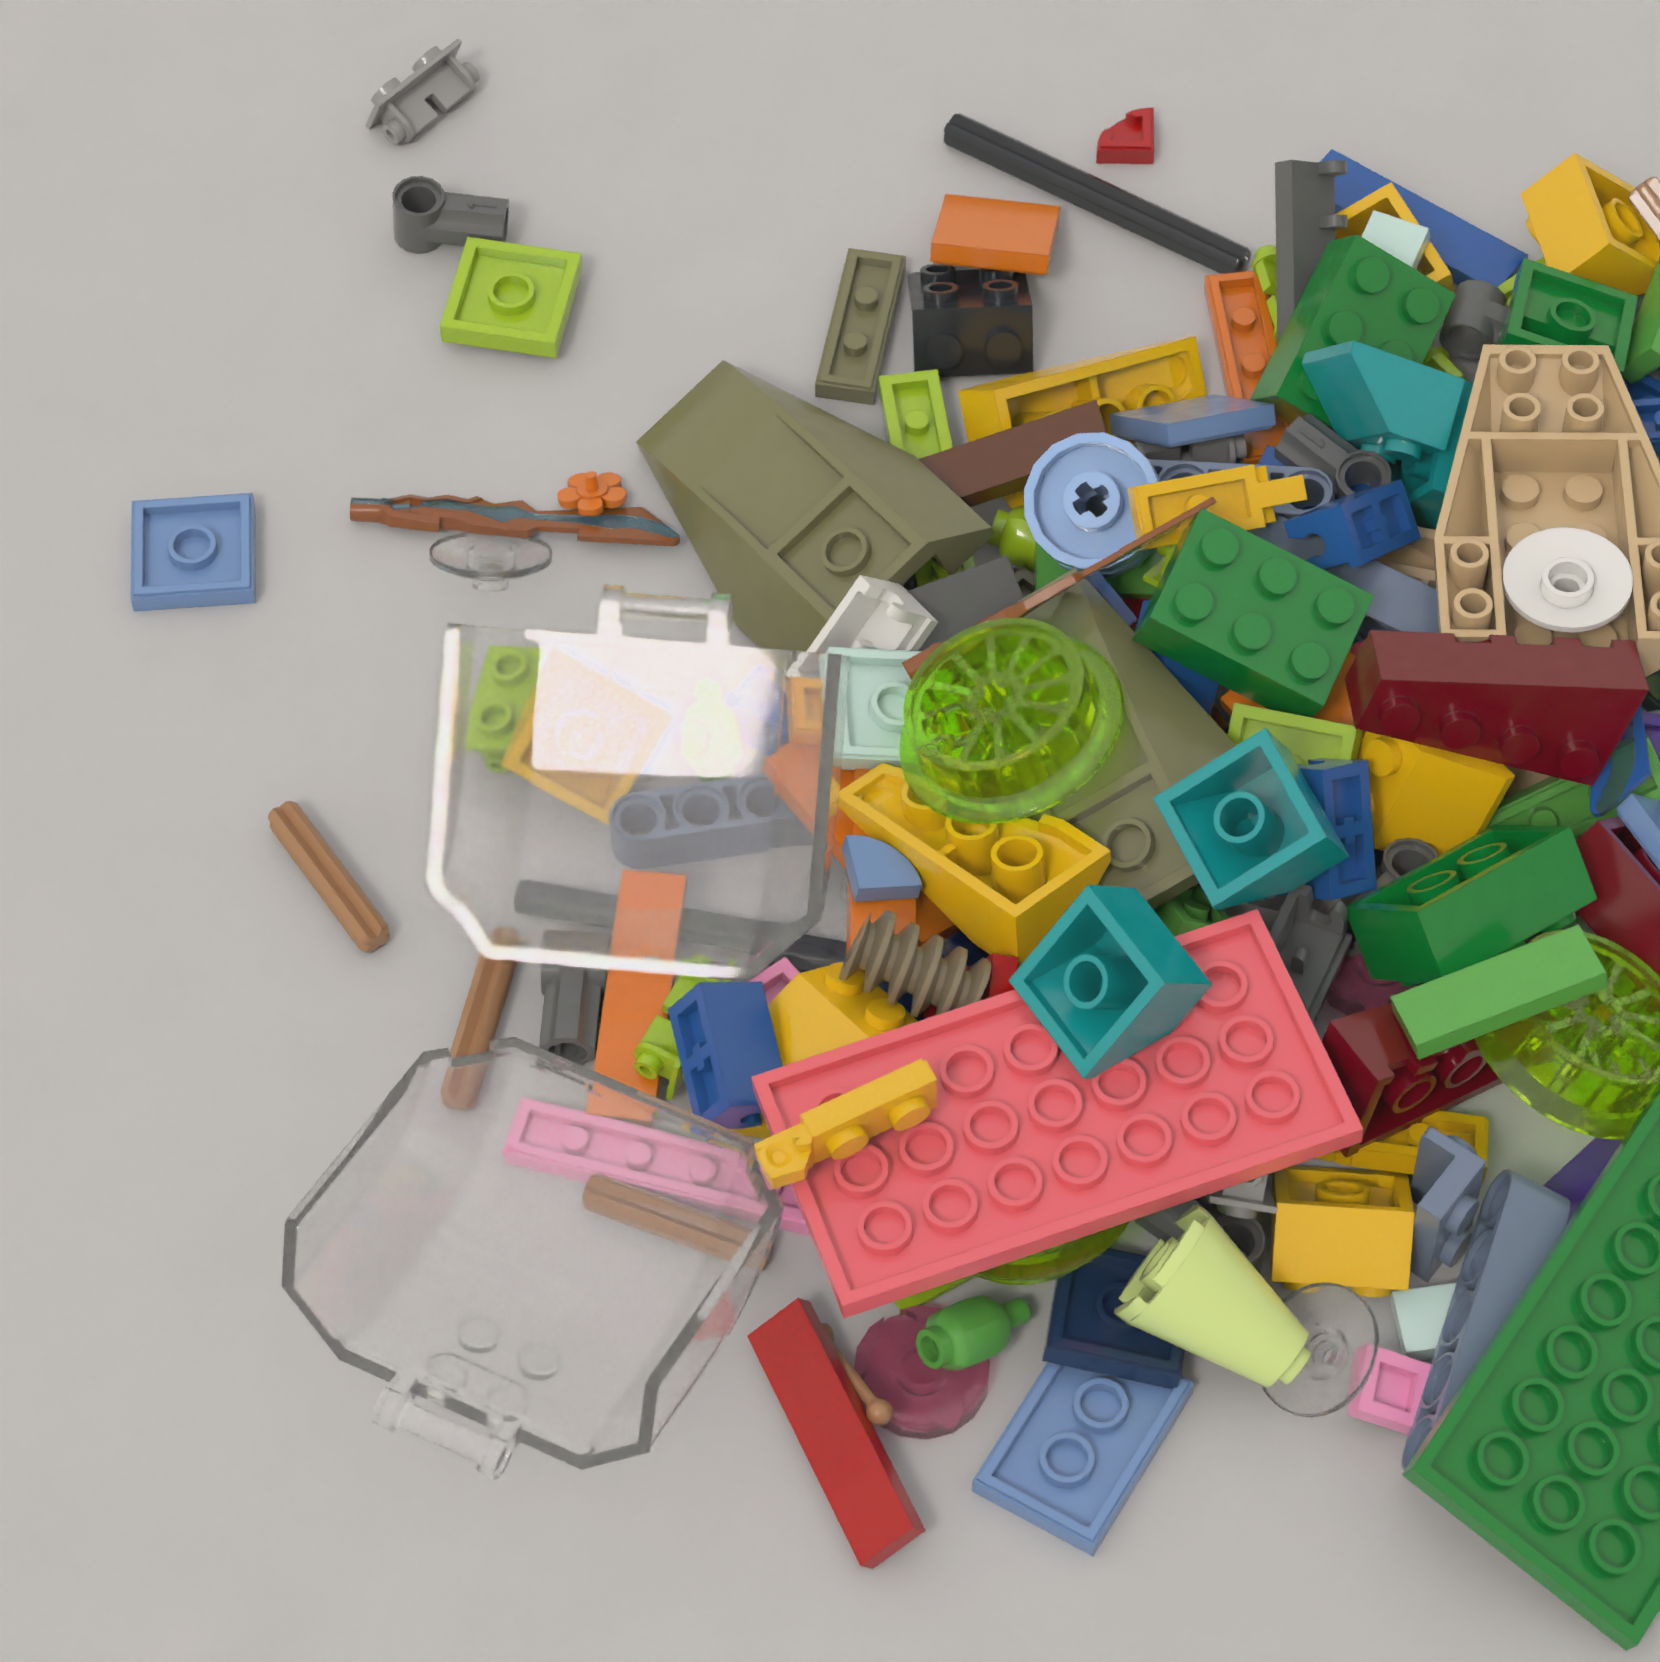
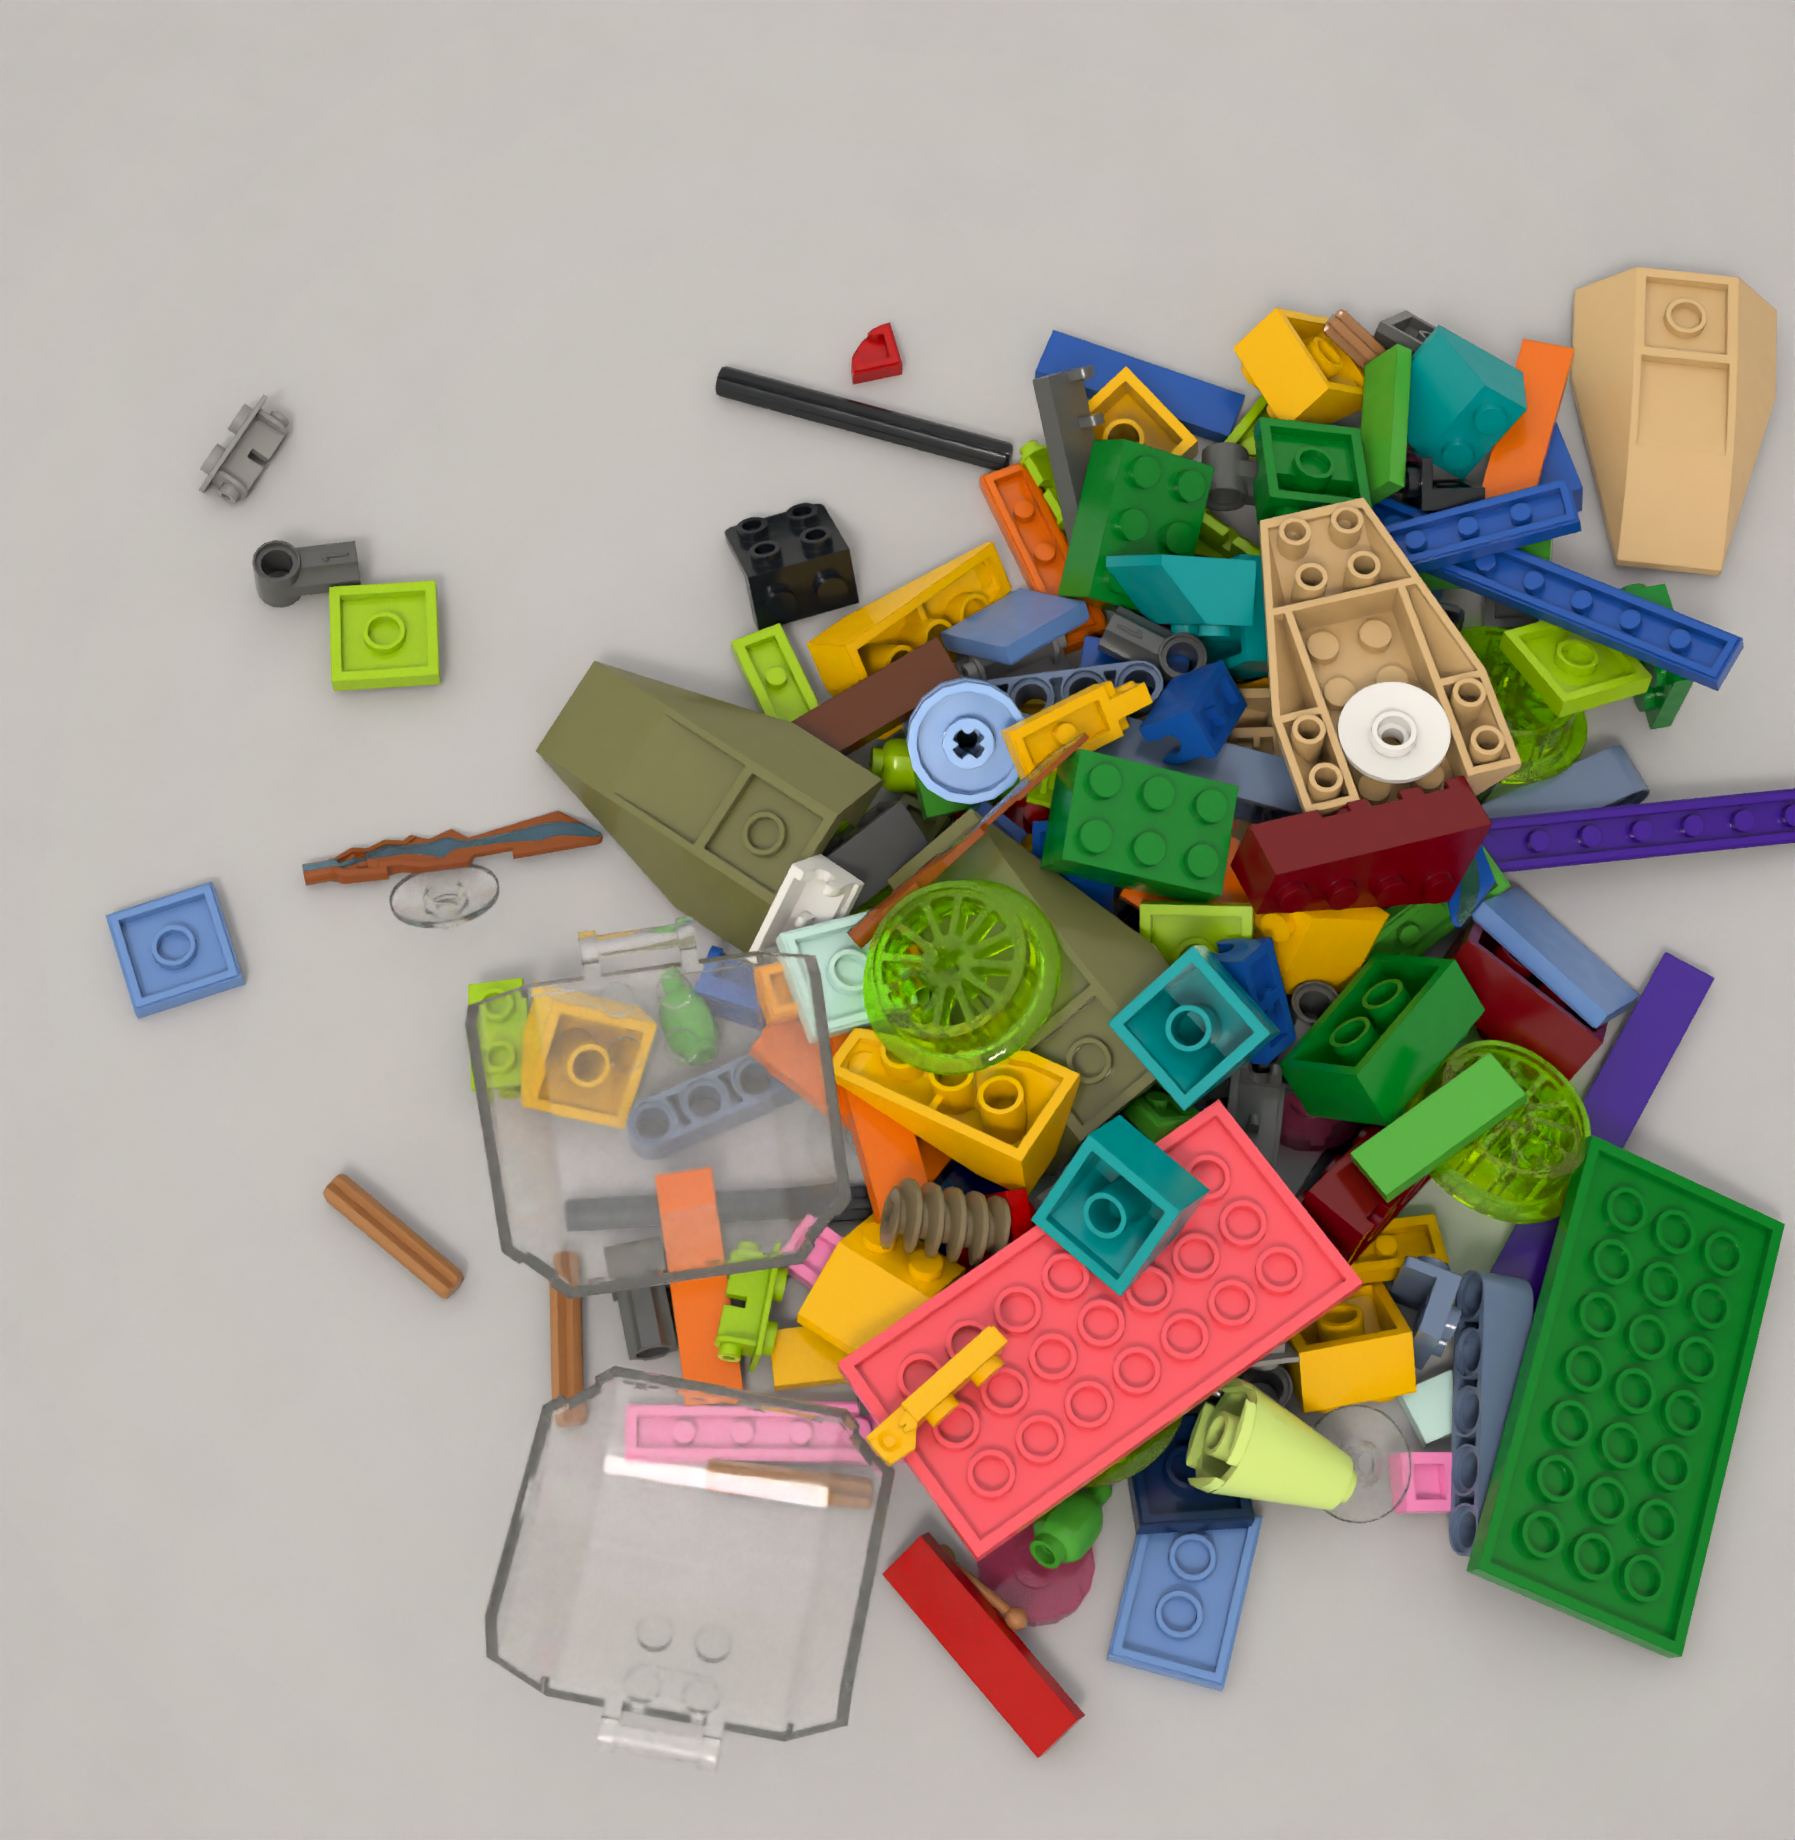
camera: 20 degrees left, 10 degrees up
(592, 493) = (512, 809): orange plant -> none
(721, 1043) = (800, 1332): blue hinge -> none
(860, 326) = (697, 591): olive tile -> none
(878, 870) = (882, 1133): medium blue tile -> none
(995, 234) = (792, 479): orange tile -> none
(1397, 237) = (1143, 423): light aqua tile -> none

